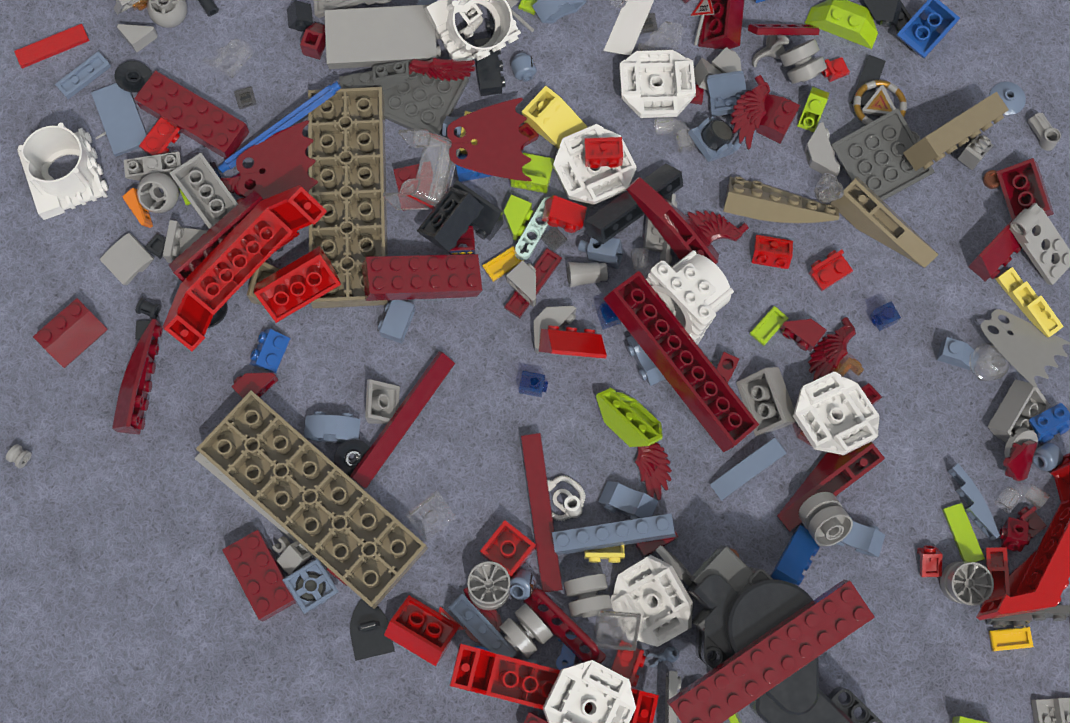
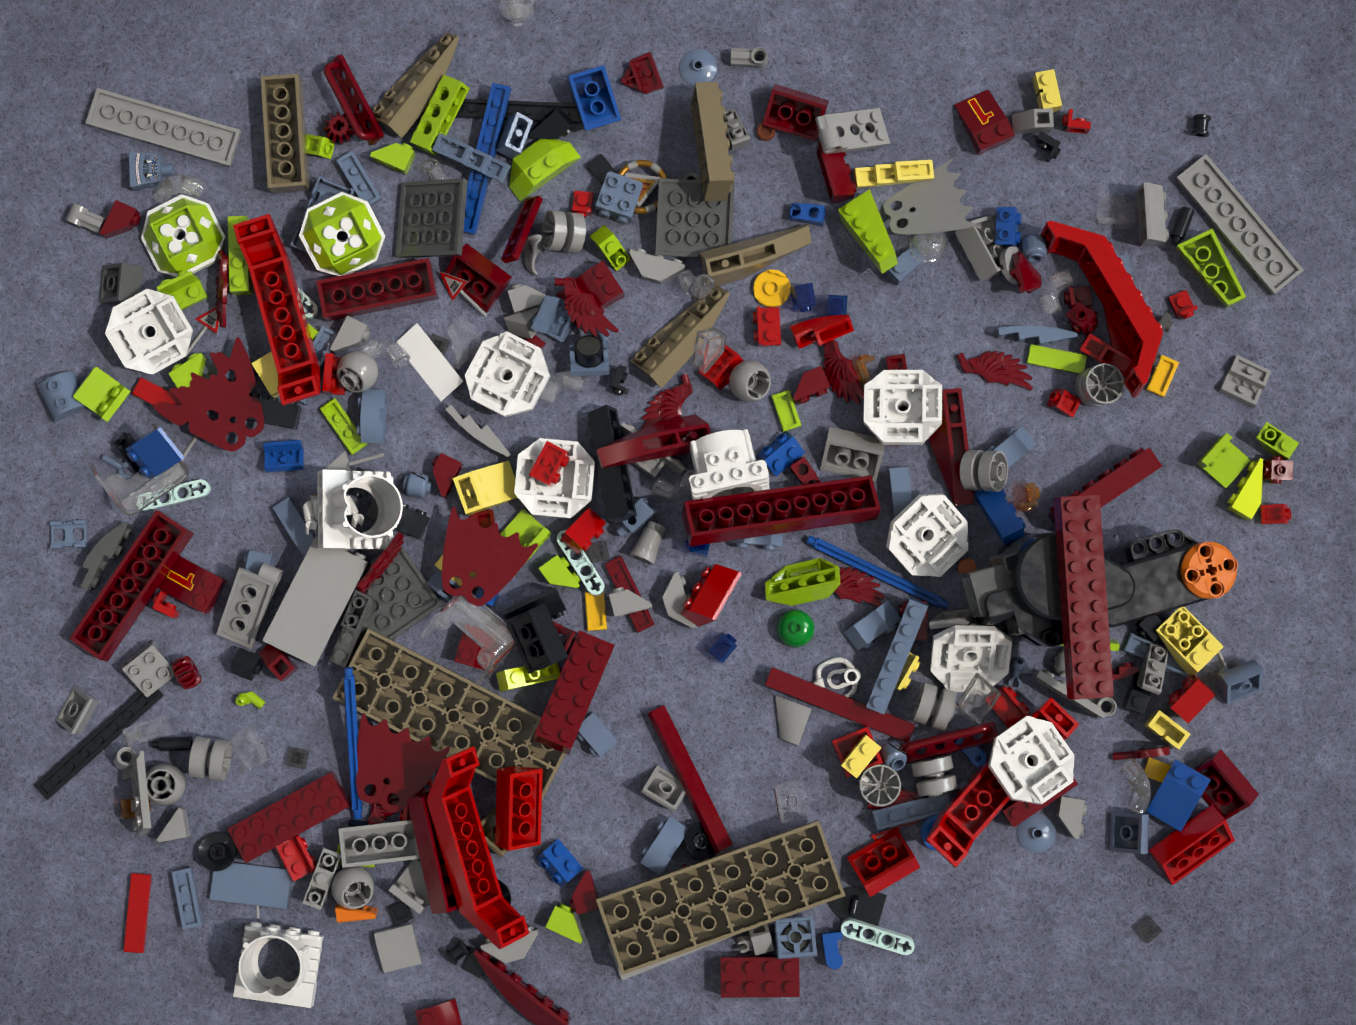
camera: 55 degrees left, 10 degrees up
(176, 352) = (514, 951): none -> light grey slope
(206, 28) = (210, 758): none -> light grey wheel
(219, 382) = (565, 923): none -> lime slope
(274, 35) = (248, 698): none -> lime arm
(311, 632) = (831, 952): none -> blue leg
(348, 664) = (879, 932): none -> light aqua beam
(407, 228) = (519, 677): none -> neon yellow slope
(503, 478) = (791, 719): none -> light grey slope
(504, 550) = (860, 756): none -> light yellow brick
(547, 77) = (445, 470): none -> dark red slope
(586, 437) = (795, 628): none -> green cylinder
(596, 93) = (482, 435): none -> light grey slope
(677, 482) = (877, 572): none -> blue piece
(711, 174) = (619, 377): none -> black bracket
(730, 341) = (781, 453): none -> blue bracket
(743, 521) = (940, 547): none -> white piece
(775, 285) = (750, 381): none -> light grey wheel
(781, 229) = (708, 348): none -> clear slope
(830, 579) = (1032, 494): none -> clear orange bracket
(857, 314) = (821, 329): none -> red slope
(858, 91) = (618, 197): none -> sand blue bracket
(859, 256) = (766, 291): none -> yellow tile
(875, 283) = (803, 297): none -> clear blue brick
(895, 650) = (1115, 482): none -> dark red brick
(920, 485) = (996, 369): none -> dark red animal
(947, 250) = (807, 213): none -> blue leg
(968, 303) = (867, 228): none -> lime wedge
(972, 58) = (643, 74): none -> dark red slope

